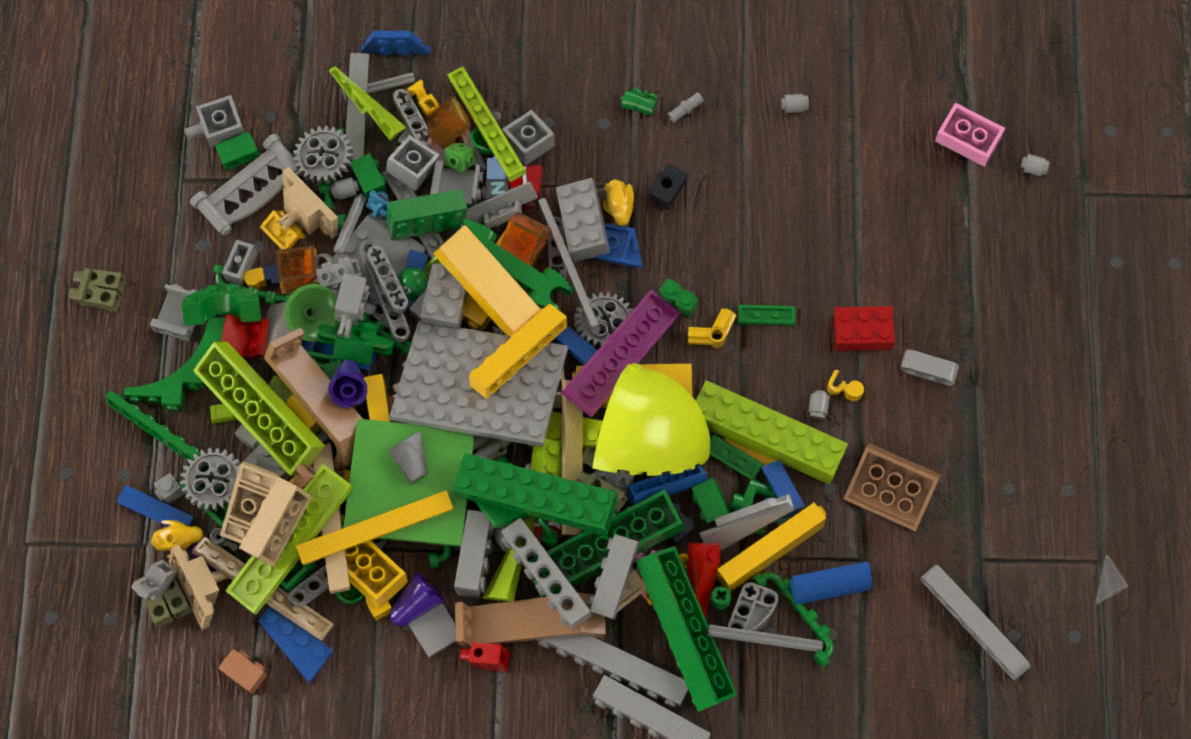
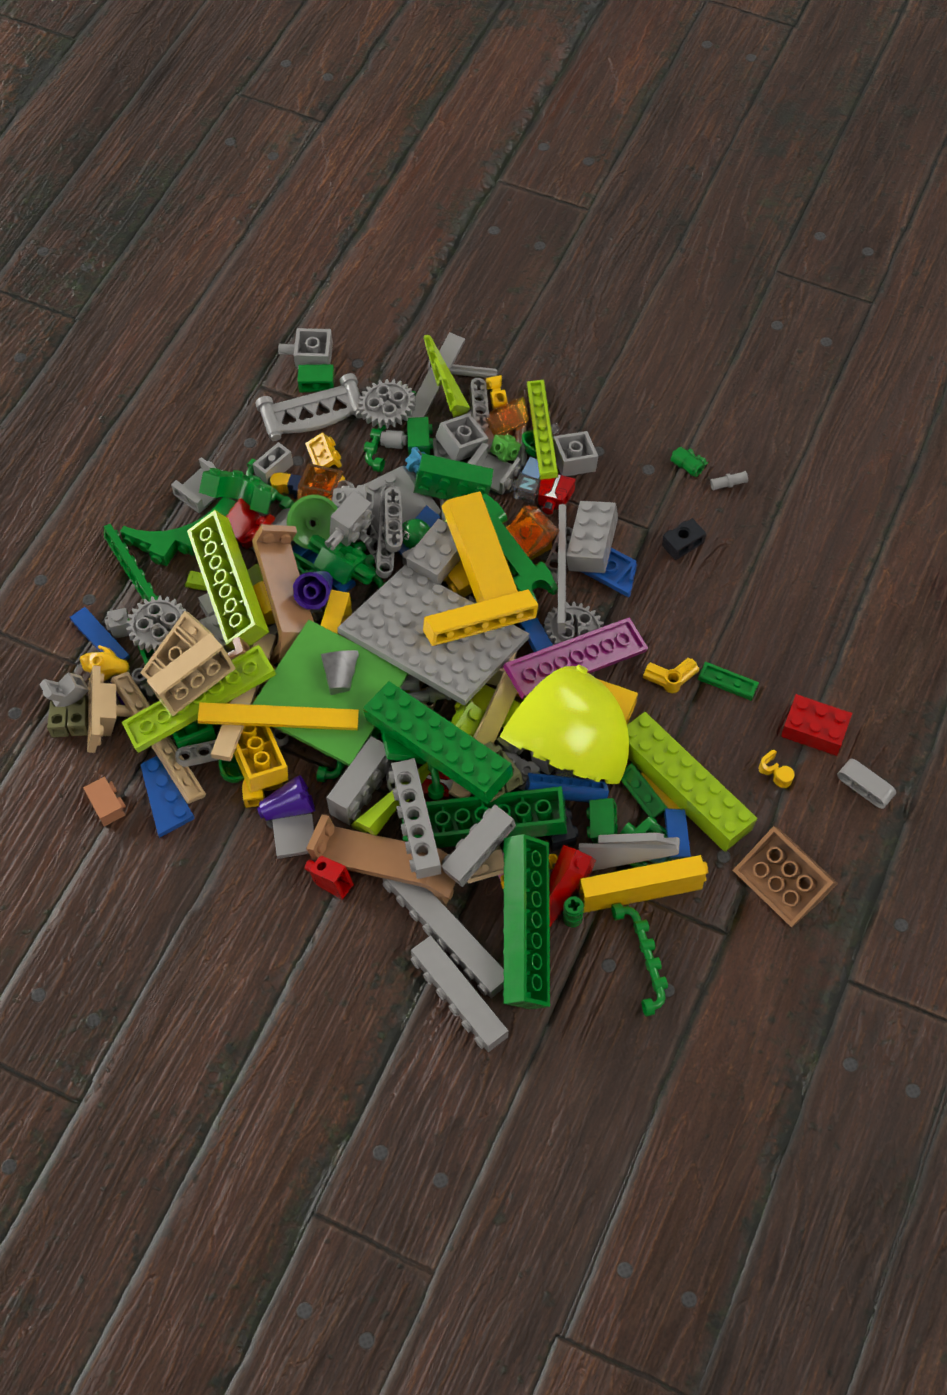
camera: 20 degrees right, 10 degrees down
(98, 289) = (144, 442): olive hips -> none
(305, 207) = (351, 440): tan brick -> none
(350, 224) = (383, 467): light grey axle -> none
(394, 43) = (492, 339): blue wing -> none
(502, 207) = (514, 500): light grey bracket -> none
(619, 201) = (633, 533): yellow animal -> none
(681, 299) = (653, 636): green brick -> none
(758, 610) = (605, 939): light grey beam -> none
(764, 638) = (599, 963): light grey axle -> none
(795, 103) = (832, 512): light grey brick -> none
(818, 405) = (744, 776): light grey brick -> none
(831, 583) = (687, 939): blue brick -> none
(975, 622) = (817, 1035): light grey beam -> none

